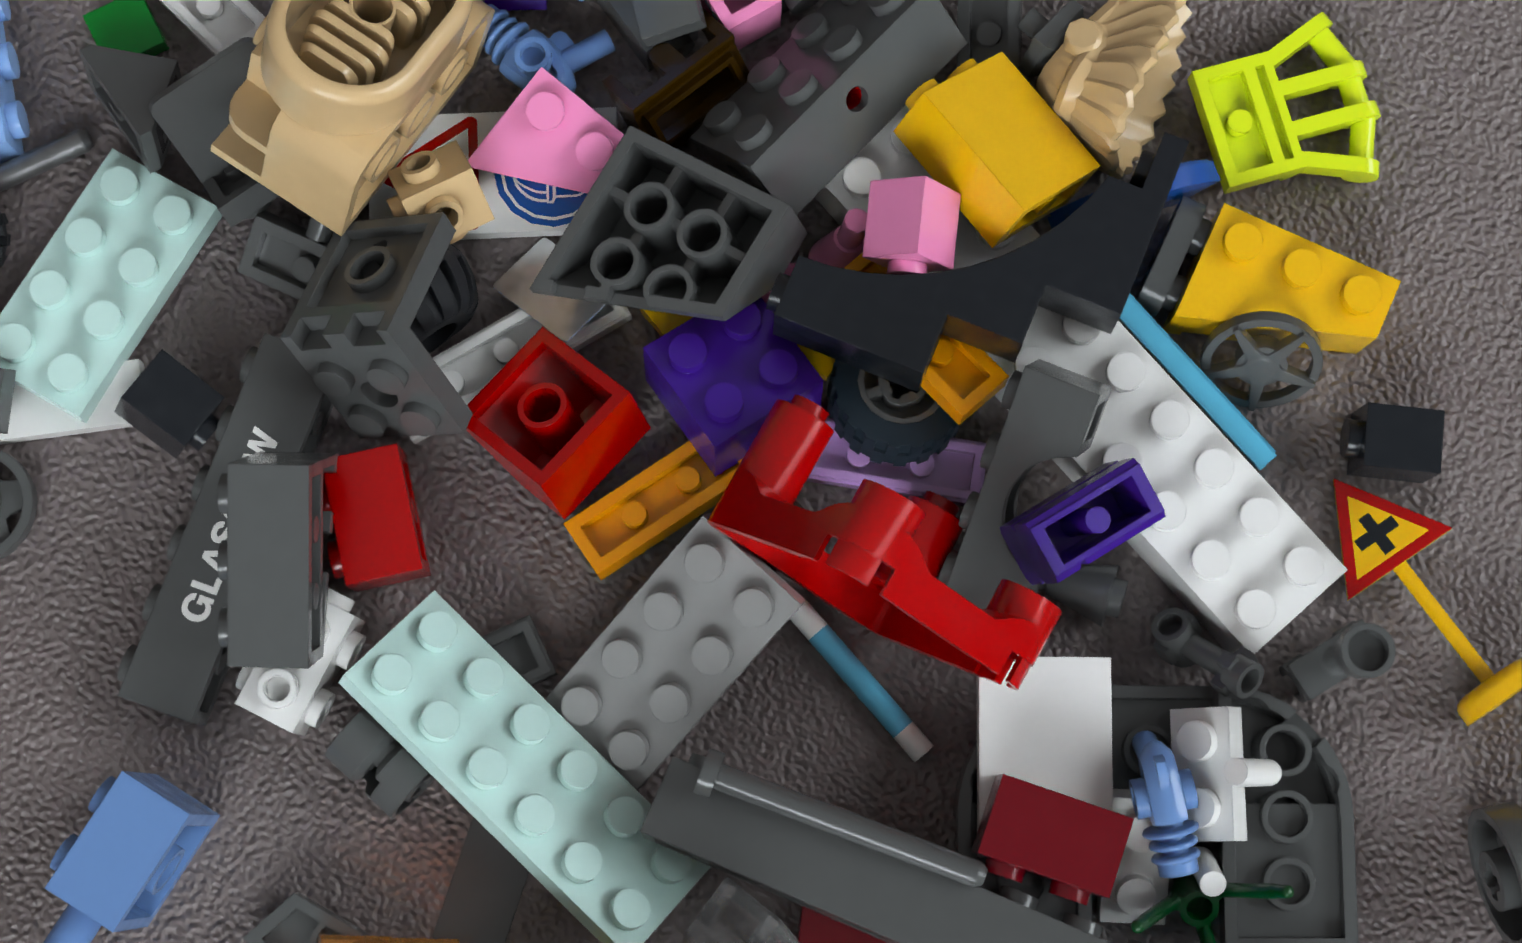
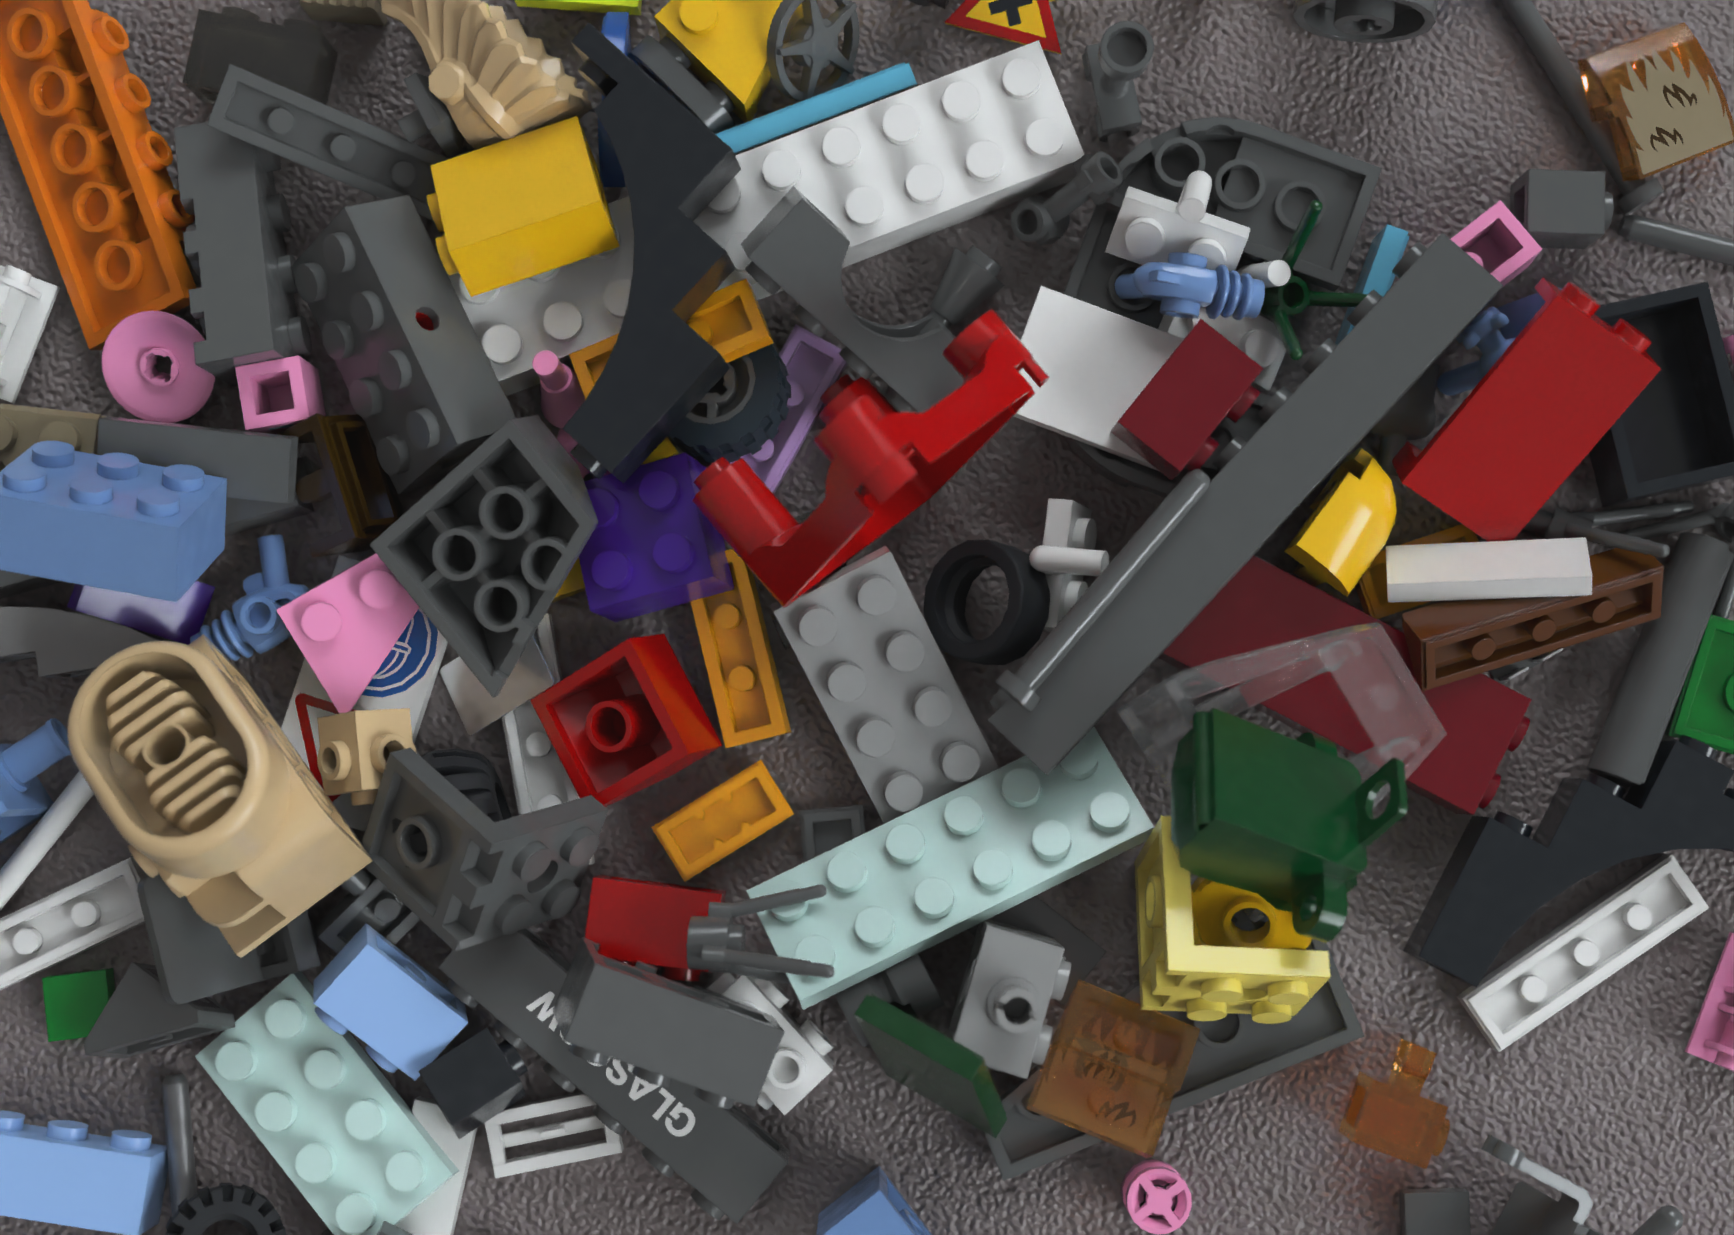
camera: 65 degrees left, 5 degrees up
(125, 449) = (498, 1141): none -> white tile
(216, 300) = (388, 1003): none -> light blue brick
(325, 823) = (932, 1064): none -> dark green tile
(372, 583) = (720, 945): none -> dark grey plant
(416, 872) = (1008, 995): none -> light grey brick
(495, 546) = (722, 820): none -> light orange plate
(797, 755) = (947, 596): none -> black tyre
(859, 777) = (1067, 555): none -> white plate
(861, 682) = (974, 524): medium azure bar -> none
(911, 225) = (571, 313): bright pink brick -> none
(1082, 521) = (911, 261): dark purple brick -> none

